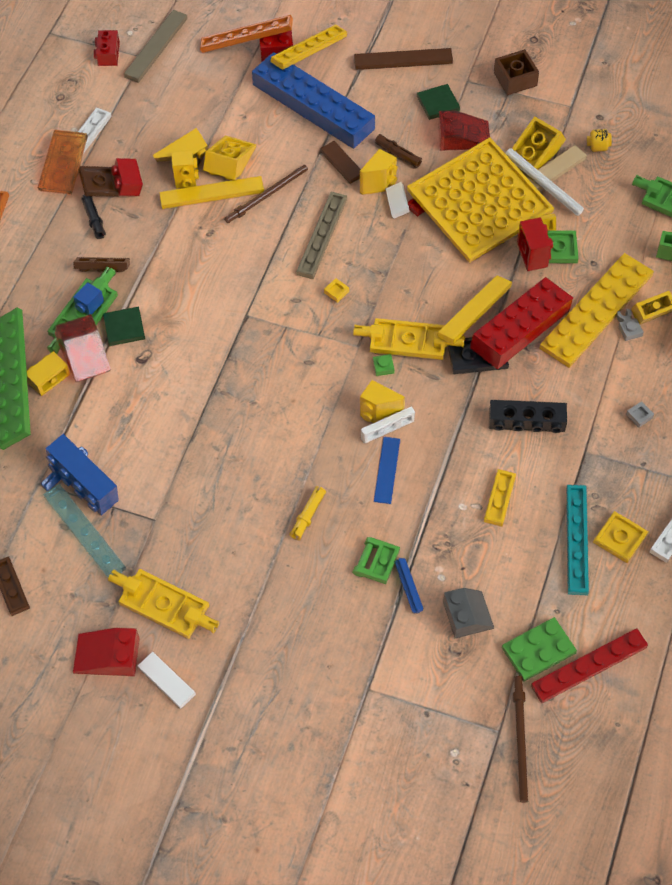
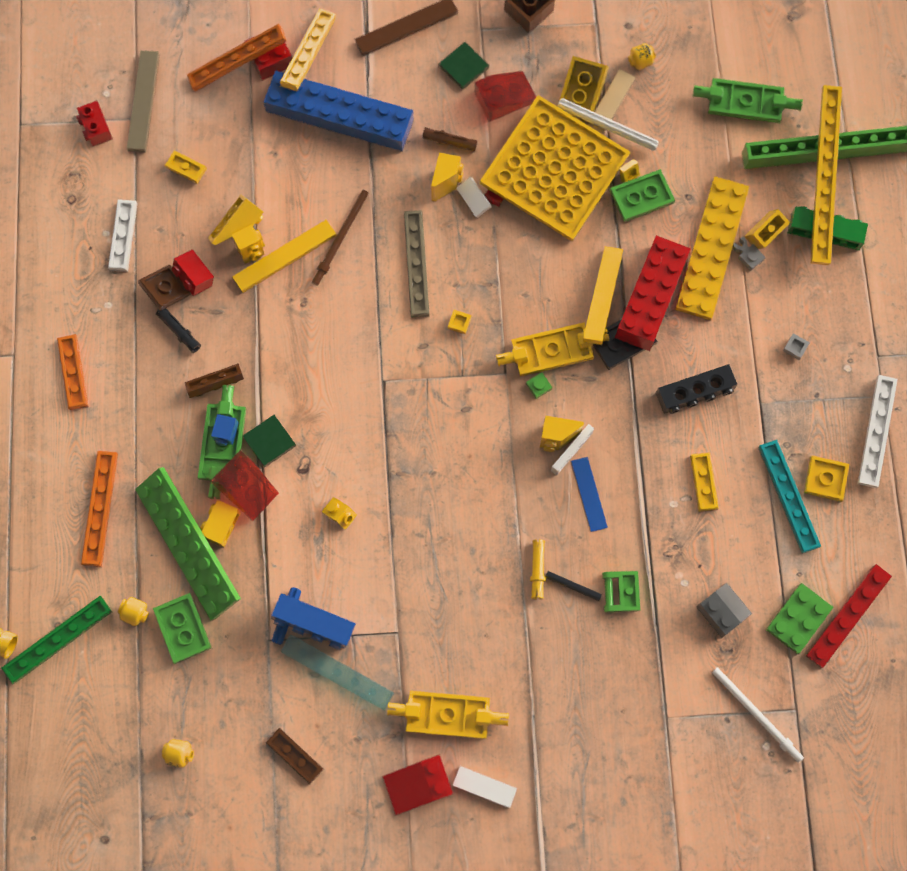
camera: 25 degrees left, 15 degrees up
(62, 162) = (116, 278): clear orange tile -> none
(154, 403) = (339, 513): none -> yellow bracket
(164, 101) = (185, 167): none -> yellow plate
(228, 157) = (284, 209): yellow slope -> none
(334, 540) = (574, 586): none -> black bar
(341, 161) = (399, 172): reddish brown tile -> none
(408, 585) = (660, 604): blue axle -> none
(473, 755) = (785, 743): none -> white bar
(519, 699) = (801, 672): reddish brown bar -> none
(534, 244) = (633, 204): red brick -> none

